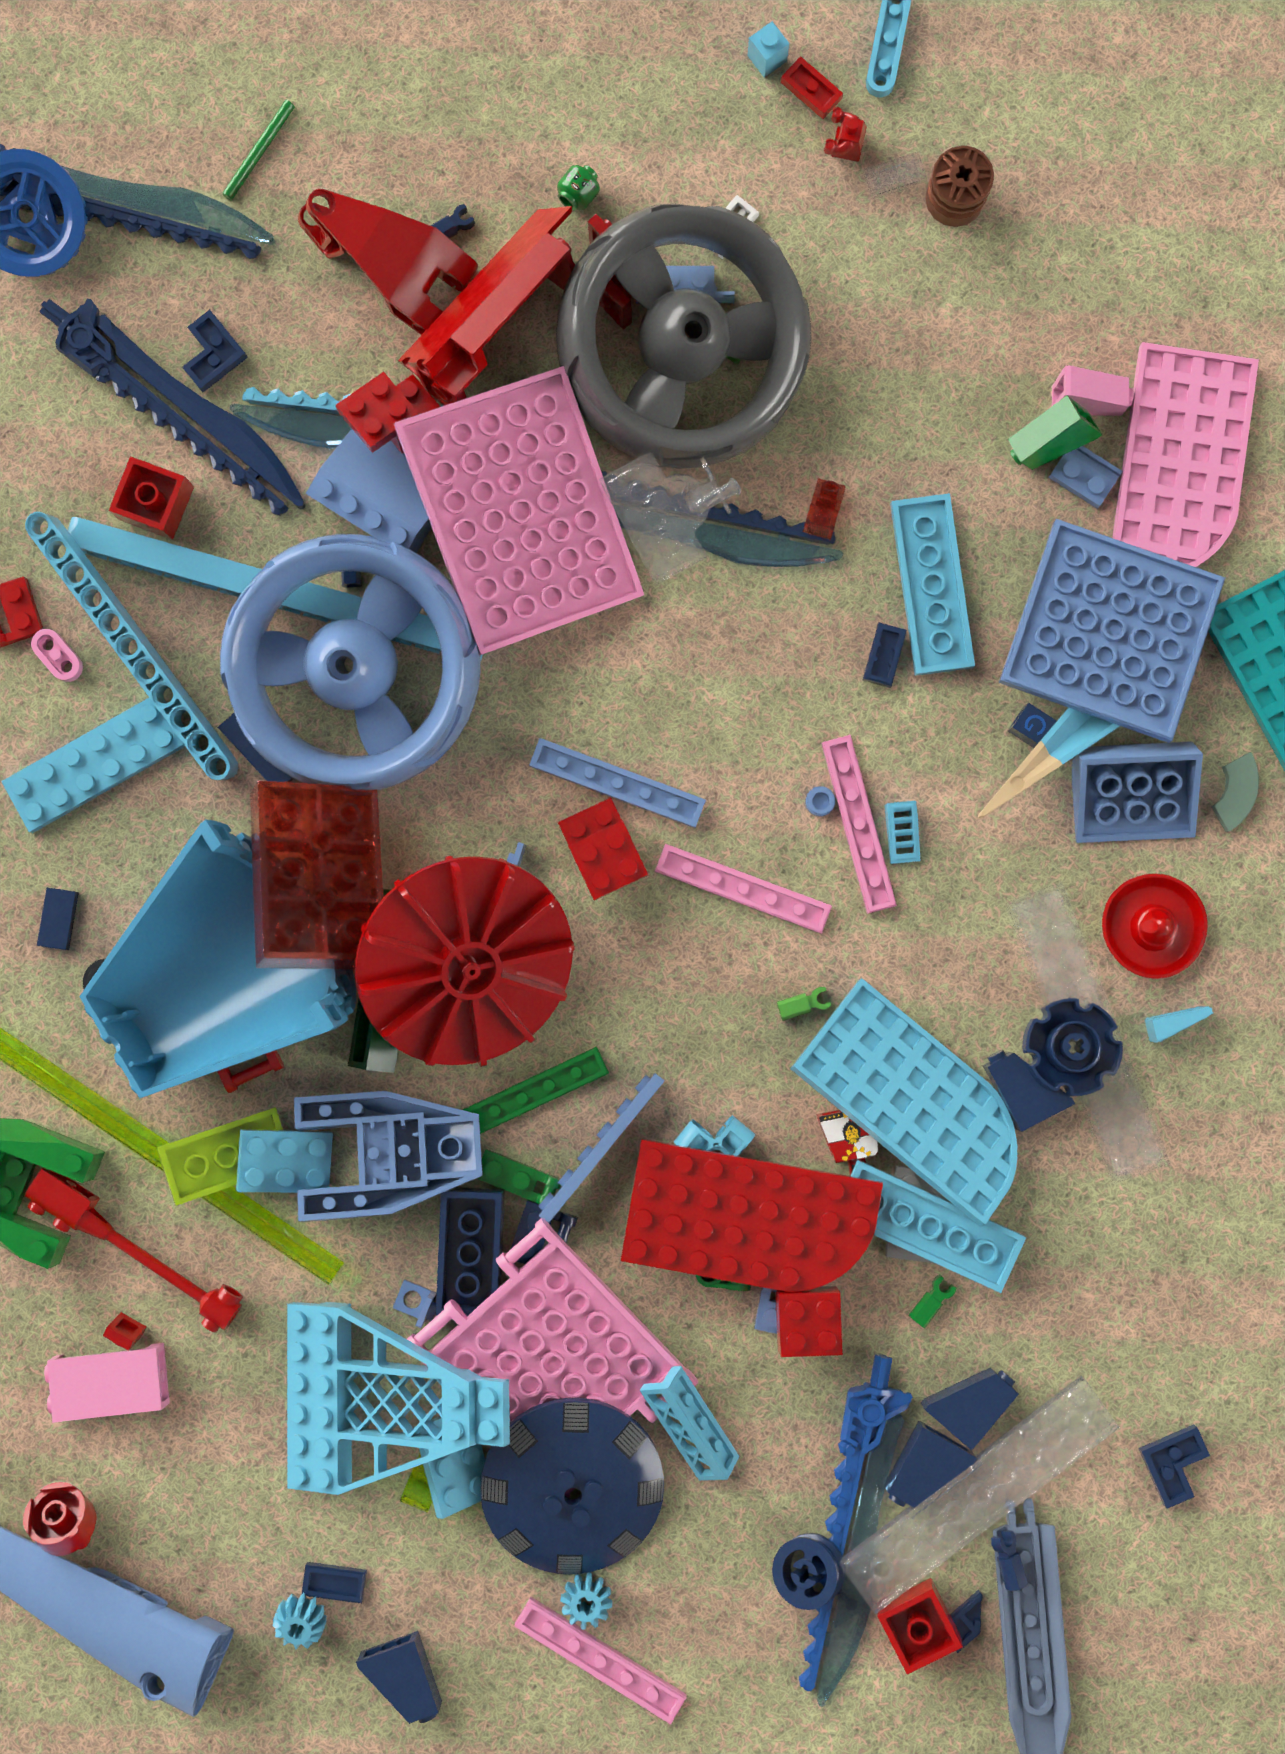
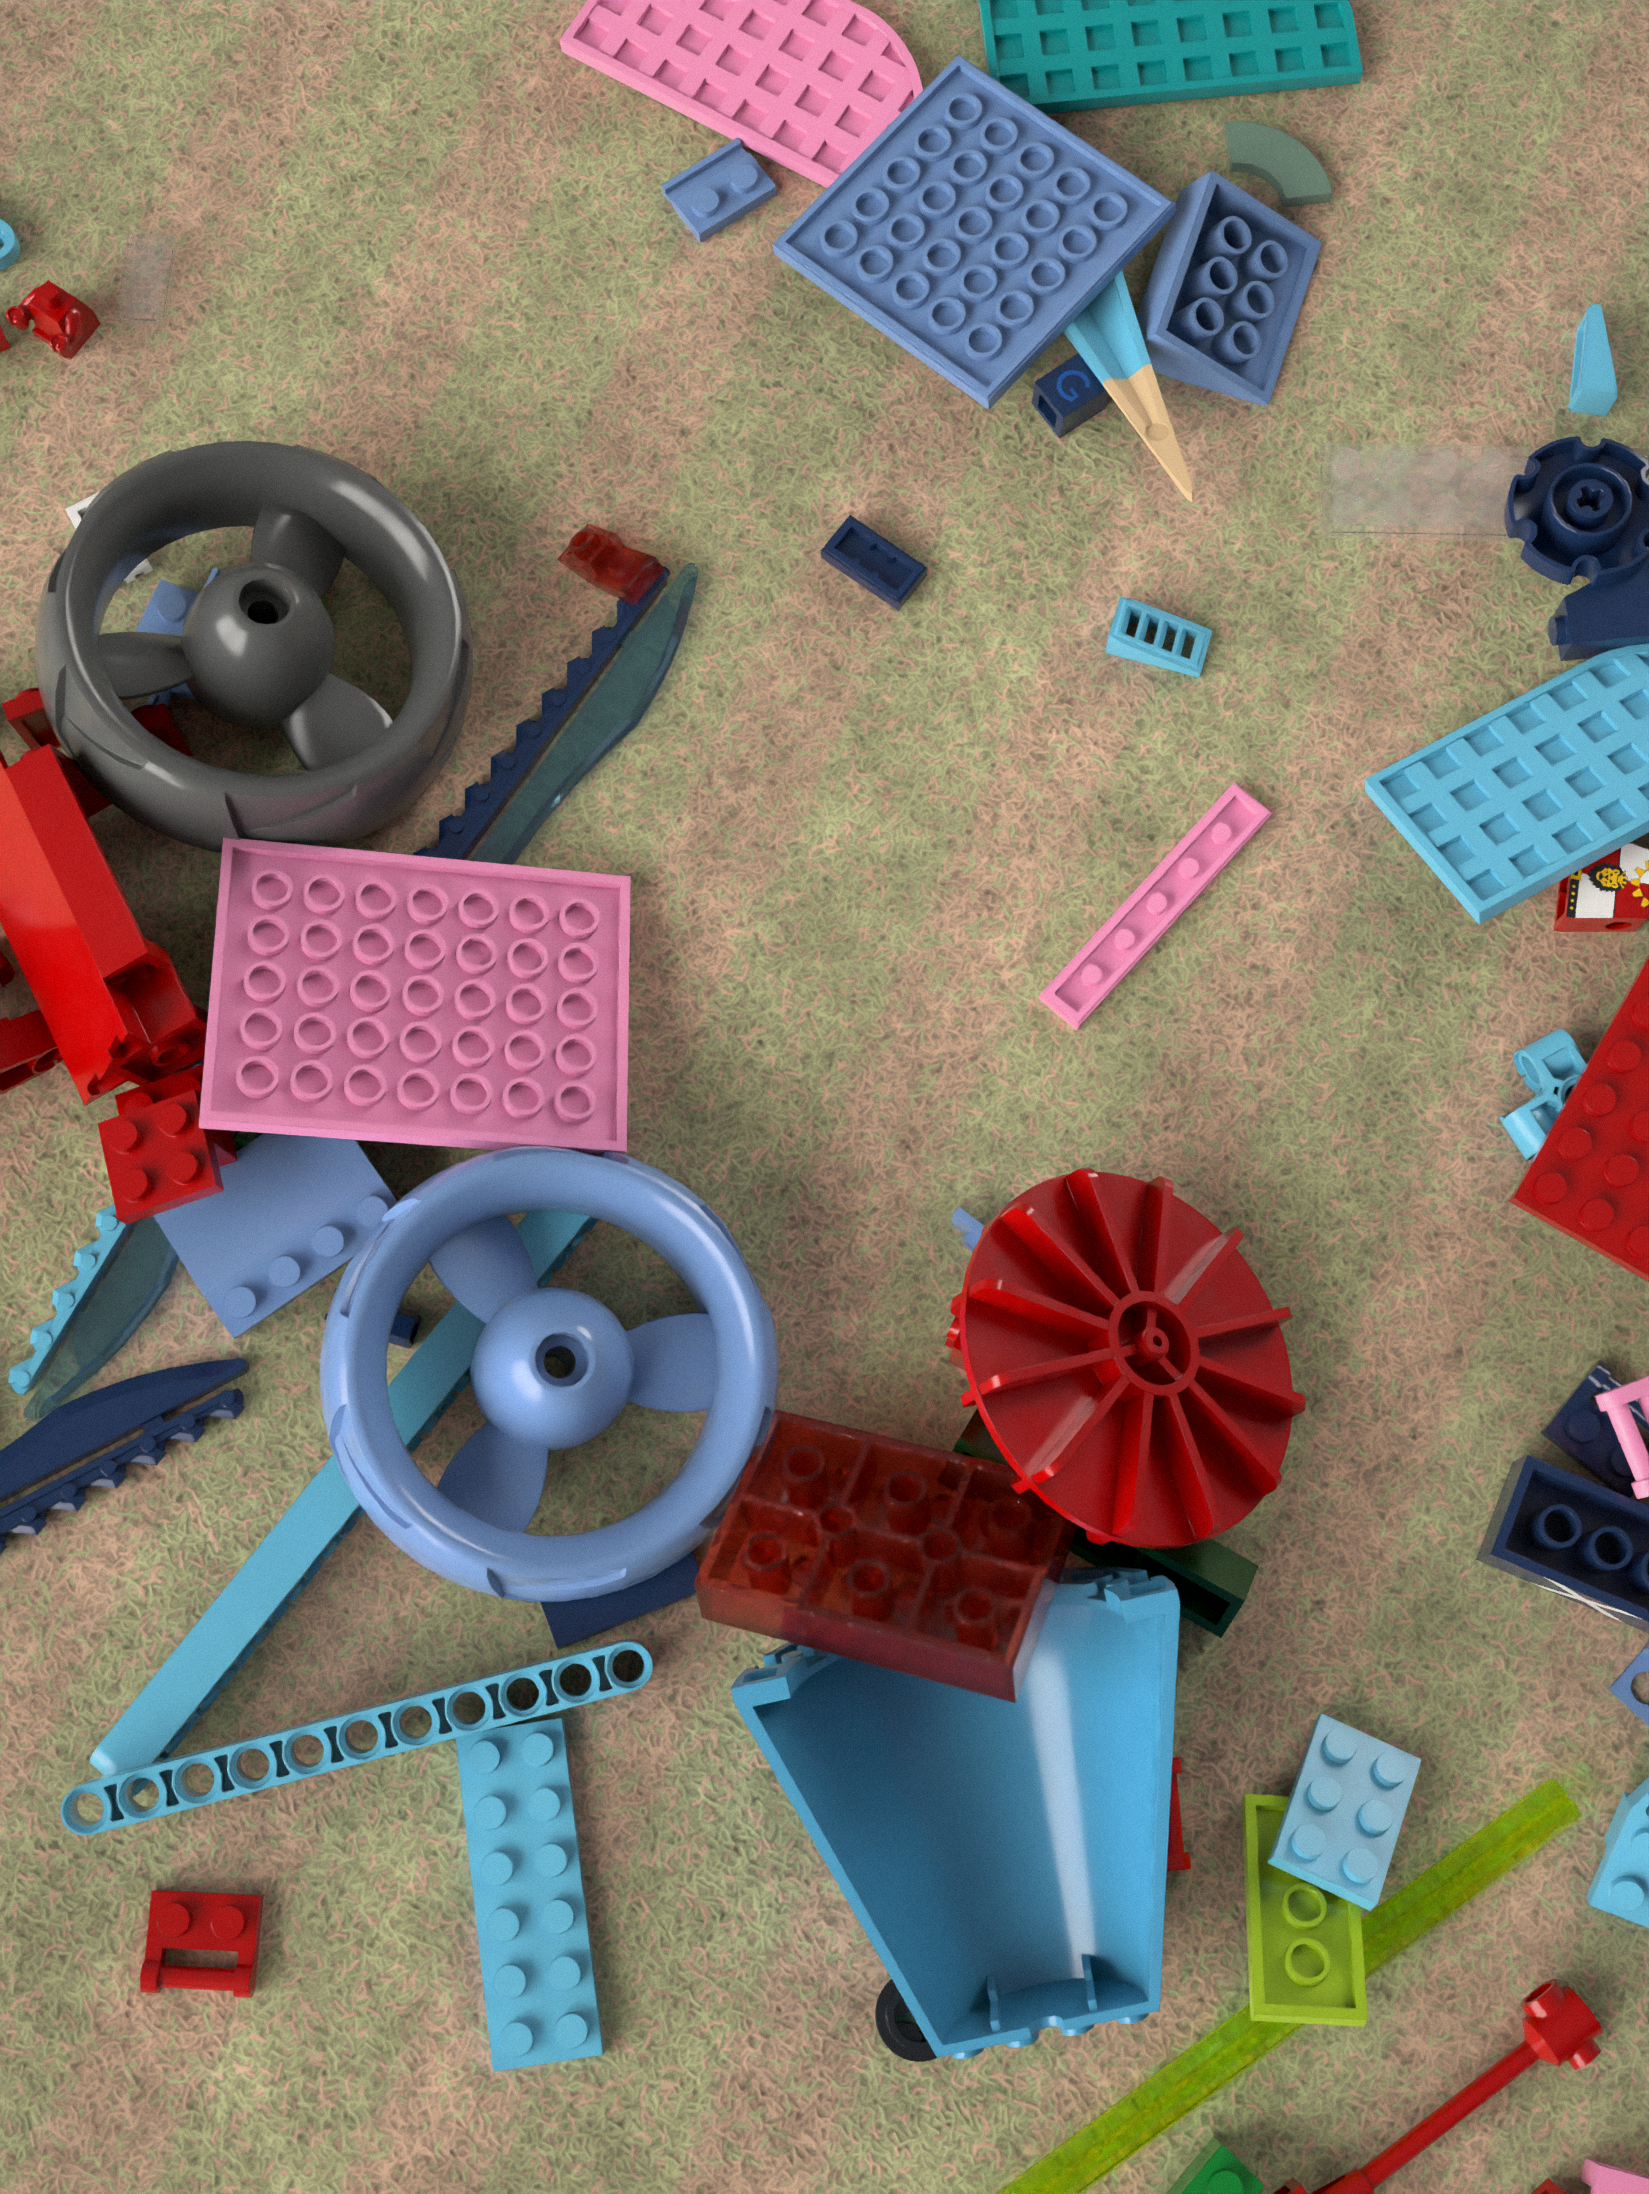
camera: 75 degrees left, 10 degrees down
(57, 918) = (774, 2063): dark blue tile -> none
(58, 656) = (316, 1883): bright pink plate -> none
(151, 498) = (120, 1607): red brick -> none
(404, 1152) = (1403, 1590): medium blue wedge -> none
(516, 1176) = (1500, 1434): green plate -> none
(539, 1089) = (1370, 1379): green tile -> none
(591, 1156) = (1510, 1289): medium blue plate -> none
(602, 849) = (1015, 1087): red bracket -> none
(617, 783) = (913, 1031): medium blue plate -> none
(659, 517) = (515, 786): clear plate -> none
(801, 1004) = (1373, 884): bright green bar -> none
(820, 801) = (1062, 740): medium blue tile -> none
(858, 824) = (1121, 698): bright pink tile -> none
(932, 584) = (794, 455): medium azure plate -> none
(947, 193) = (211, 191): copper wheel -> none
(1053, 434) = (644, 202): slope -> none
(1094, 390) = (603, 135): bright pink slope -> none
(1155, 925) = (1436, 340): red hat -> none

